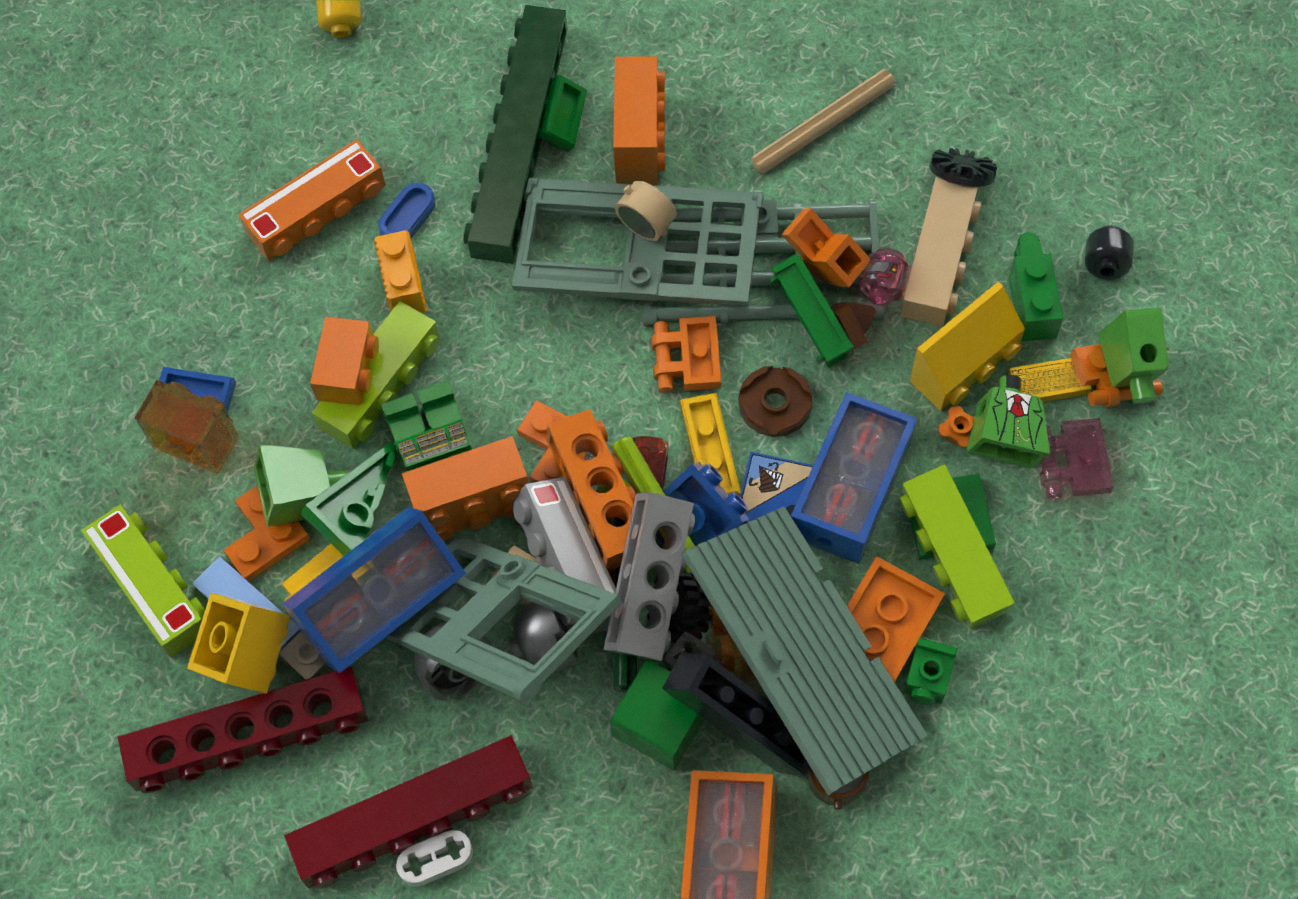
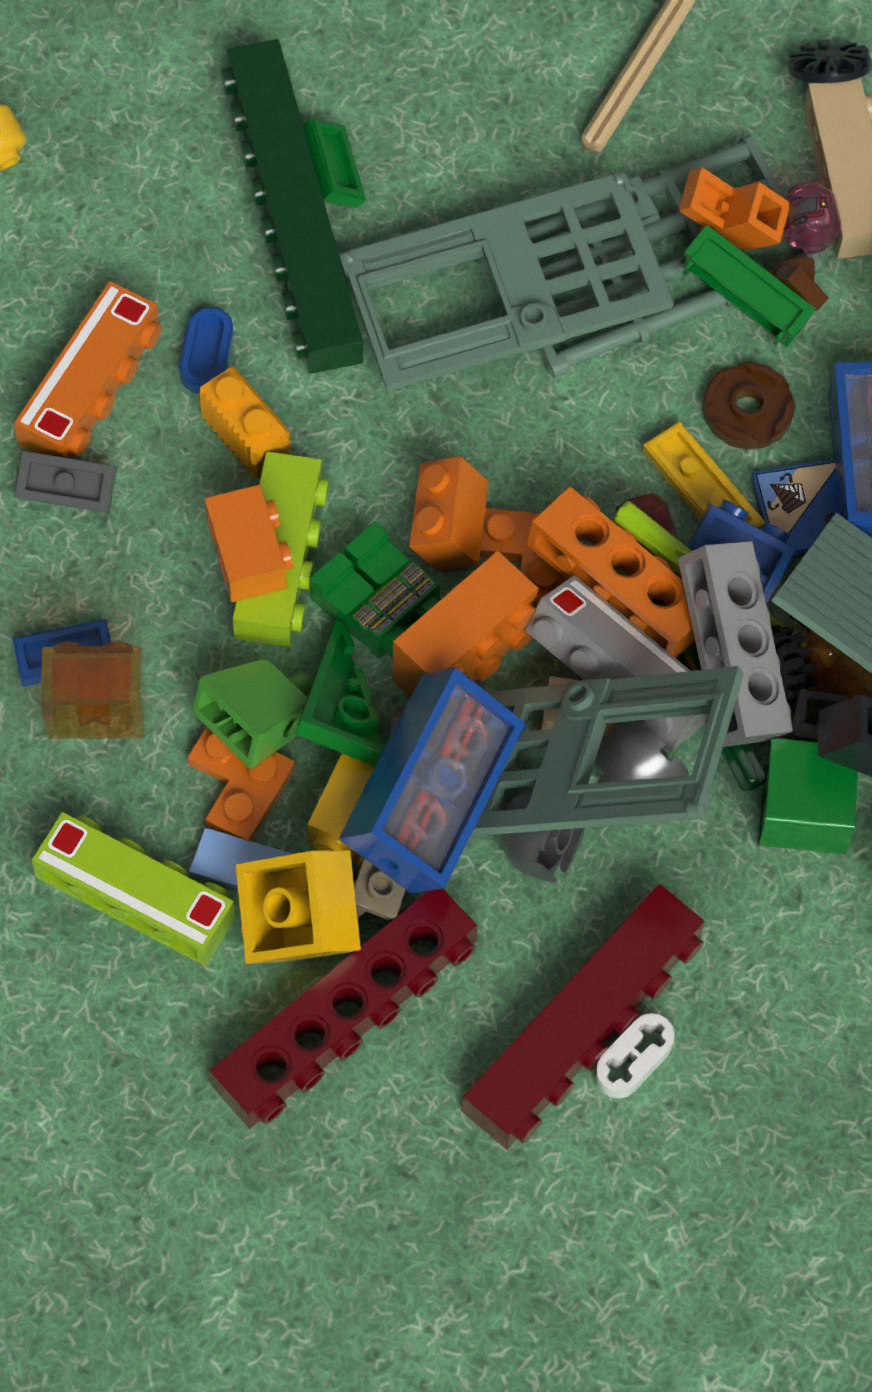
camera: 30 degrees left, 0 degrees up
(257, 270) = (66, 482): none -> dark grey plate
(507, 395) = (449, 514): none -> orange brick
(639, 120) = (435, 139): orange brick -> none
(645, 210) = (510, 239): tan piece -> none
(699, 354) = (636, 381): orange plate -> none

